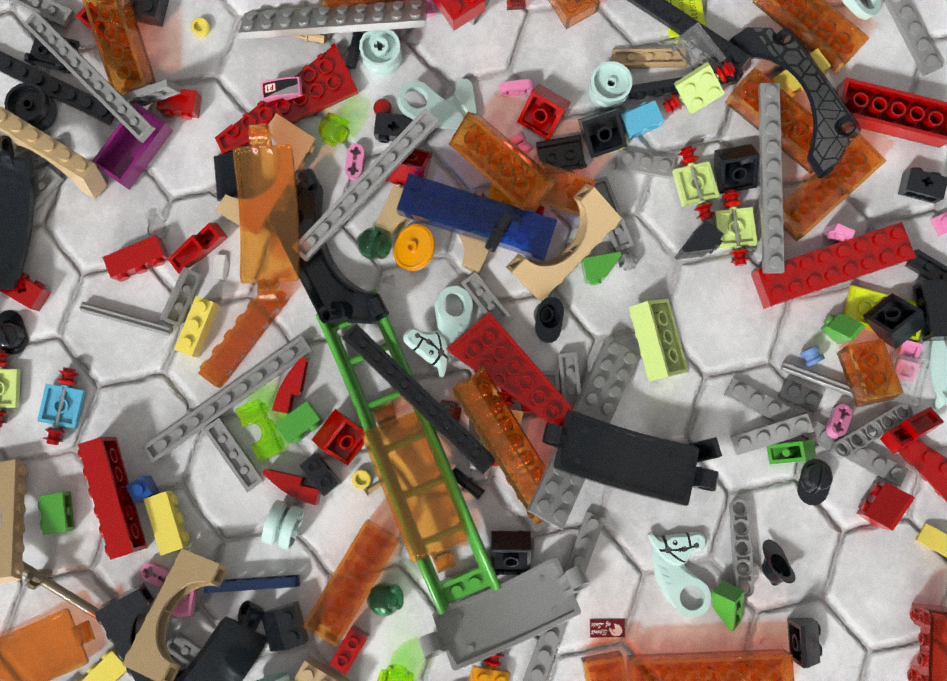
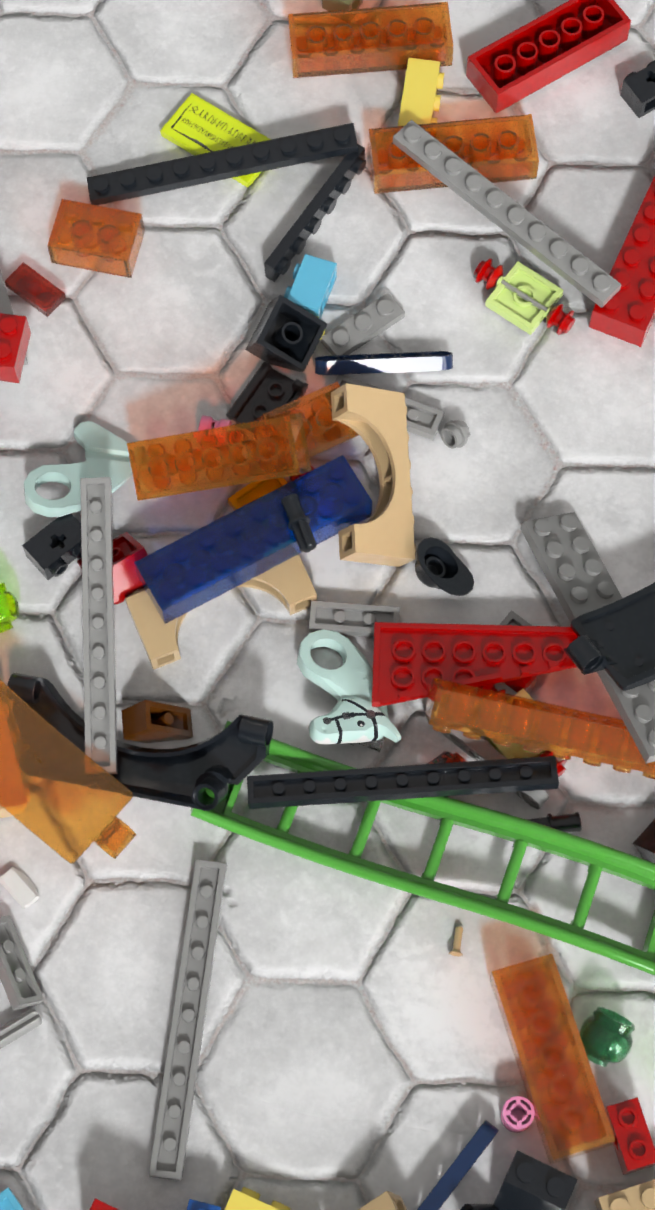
camera: 50 degrees left, 15 degrees down
(197, 327) = (67, 974): light yellow brick -> none
(233, 454) = (263, 1070): light grey plate -> none
(241, 339) = (132, 935): clear orange brick -> none
(269, 444) = (240, 998): clear neon green arch -> none
(282, 524) = (411, 1075): light aqua wheel -> none
(291, 386) = (248, 927): red slope -> none
(294, 486) = (369, 1029): red slope -> none
(299, 422) = (298, 955): bright green brick -> none
(315, 584) = (514, 1118): none -> bright pink wheel
(320, 474) = (385, 982): black brick -> none
(340, 437) = (361, 921): red slope -> none
(350, 161) = (57, 619): bright pink beam -> none
(350, 256) = (156, 722): none -> reddish brown slope
(361, 478) = (434, 944): light yellow tile -> none
(374, 243) = (170, 680): clear green piece -> none
(383, 106) = (17, 537): red piece -> none
(414, 247) = (218, 642): light orange shield -> none
(414, 487) = (504, 875): clear orange panel -> none
(517, 87) = (146, 379): bright pink beam -> none
(543, 111) = (201, 376): red slope -> none
(569, 376) = (528, 603): light grey plate -> none
(598, 267) = (433, 469): bright green slope -> none
(610, 85) = (242, 284): light aqua wheel -> none
(632, 192) = (383, 363): none -> dark blue beam
(648, 58) = (249, 225): tan tile -> none
(658, 339) = (574, 478): yellowish green slope -> none
(695, 183) = (436, 294): yellowish green plate -> none
(697, 48) = (293, 166): clear piece -> none
(699, 87) = (336, 200): yellowish green plate -> none
(702, 241) = (506, 340): black slope -> none
(736, 168) = (459, 240): black slope -> none
(822, 195) = (569, 168): clear orange brick -> none
(828, 109) = (496, 101): panel -> none
(838, 233) = (627, 202): bright pink plate -> none

